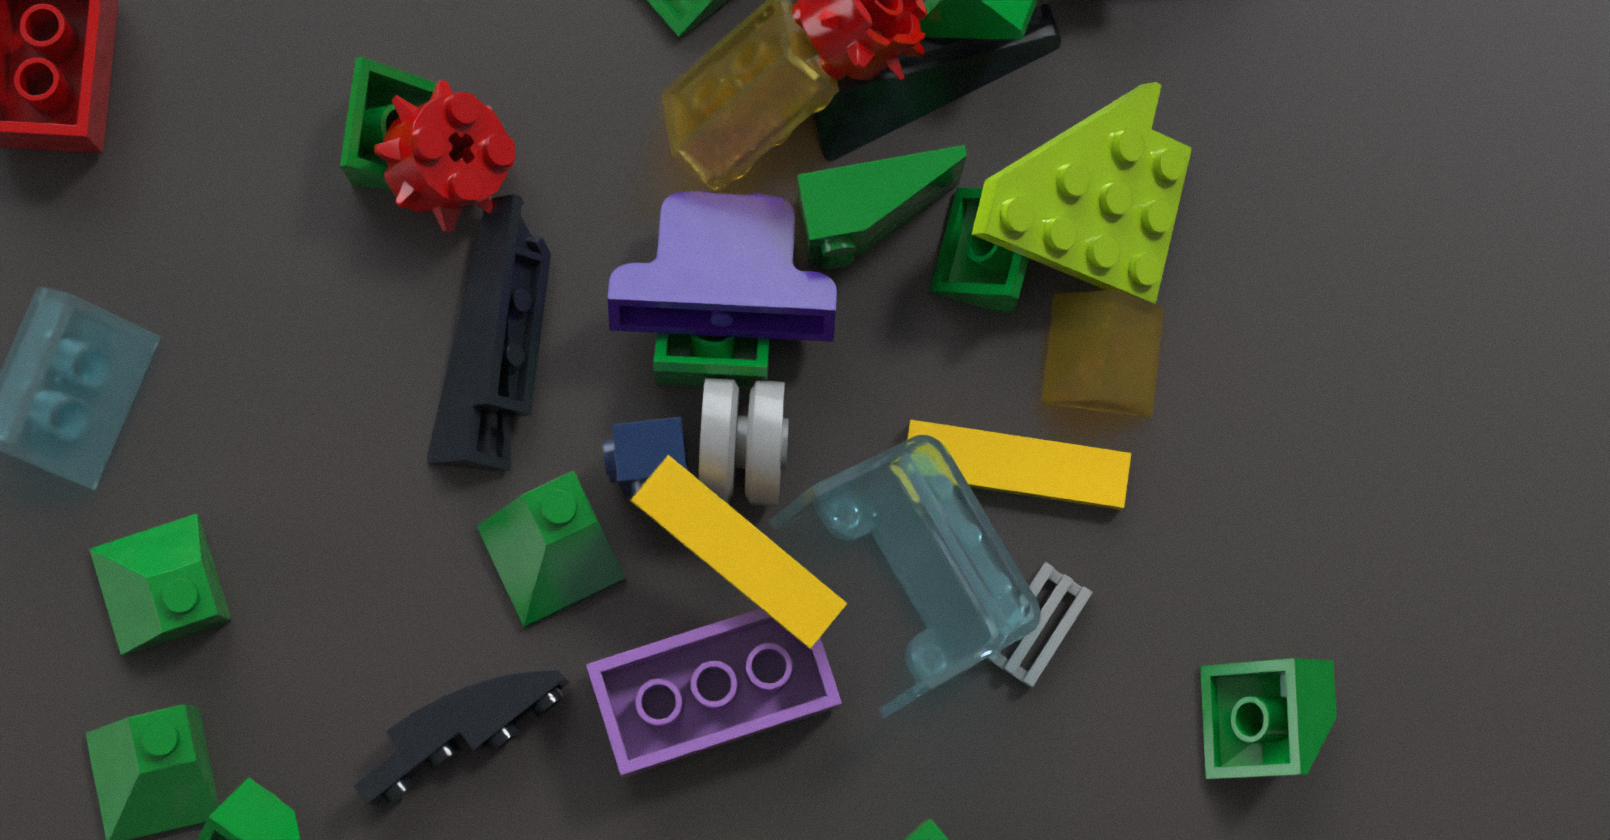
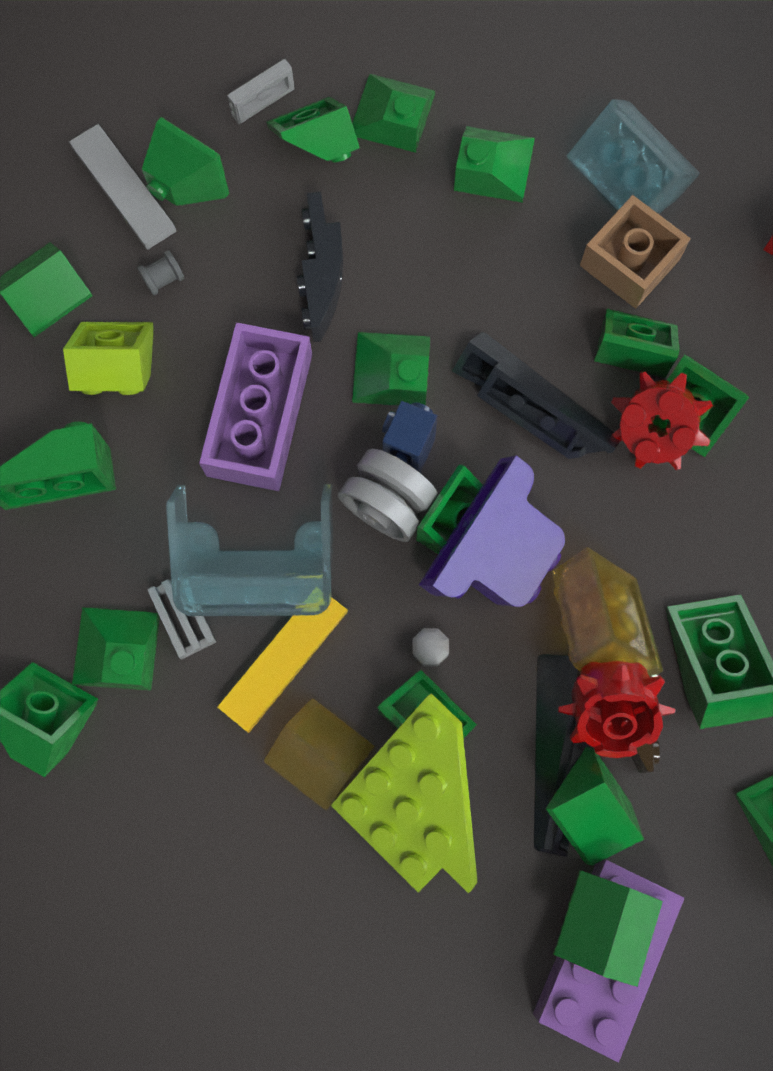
camera: 125 degrees right, 5 degrees down
(210, 311) = (634, 251): none -> medium nougat brick
(333, 247) = (637, 343): none -> green slope
(738, 551) = (318, 445): yellow tile -> none
(860, 204) = (492, 648): green slope -> none
(896, 293) = (430, 647): none -> light grey tile
(1129, 681) = (116, 649): none -> green slope

